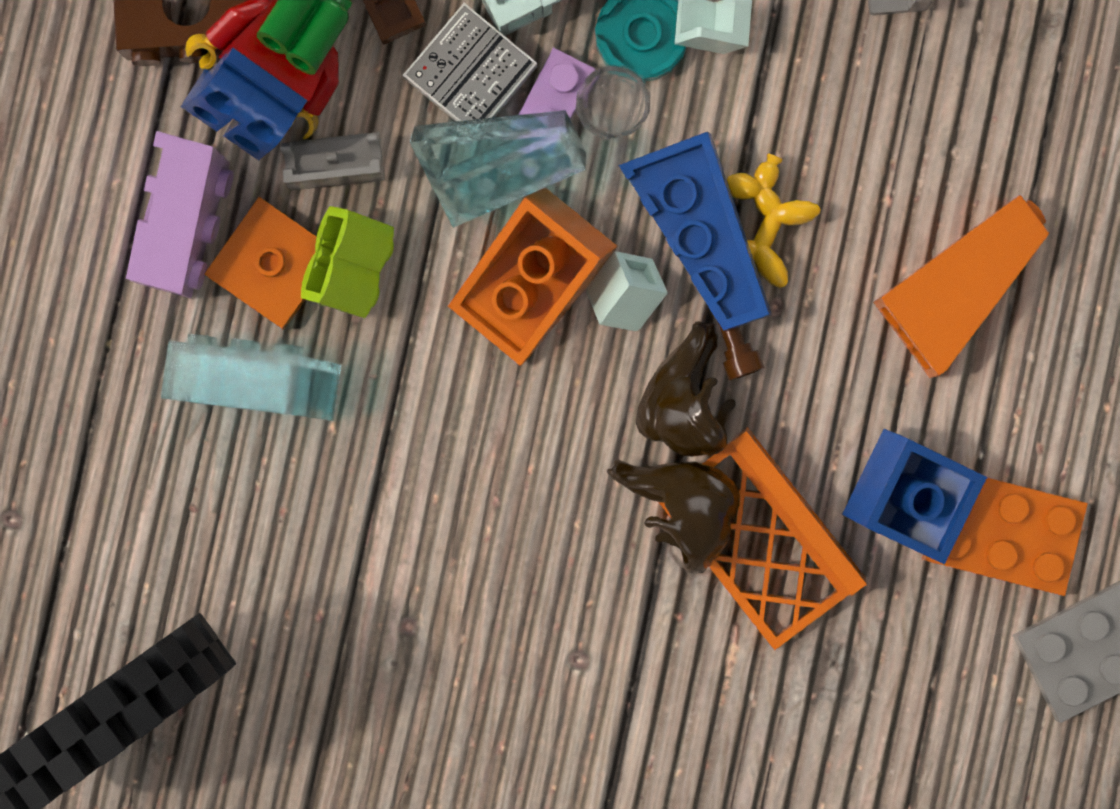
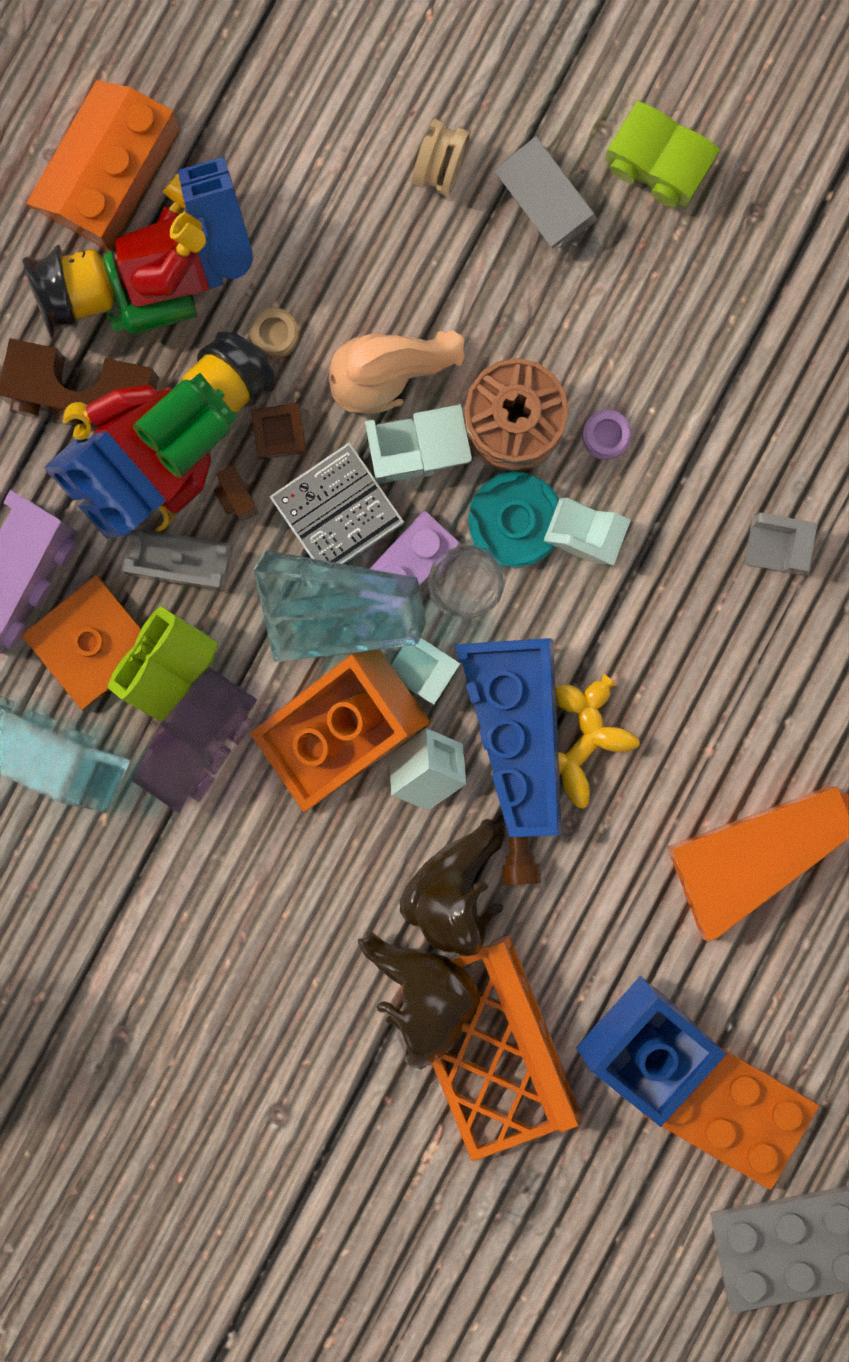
camera: 20 degrees right, 0 degrees up
(369, 82) = (234, 495): none -> reddish brown plate
(398, 325) = (195, 741): none -> clear purple brick
(597, 197) = (425, 670): none -> light aqua panel

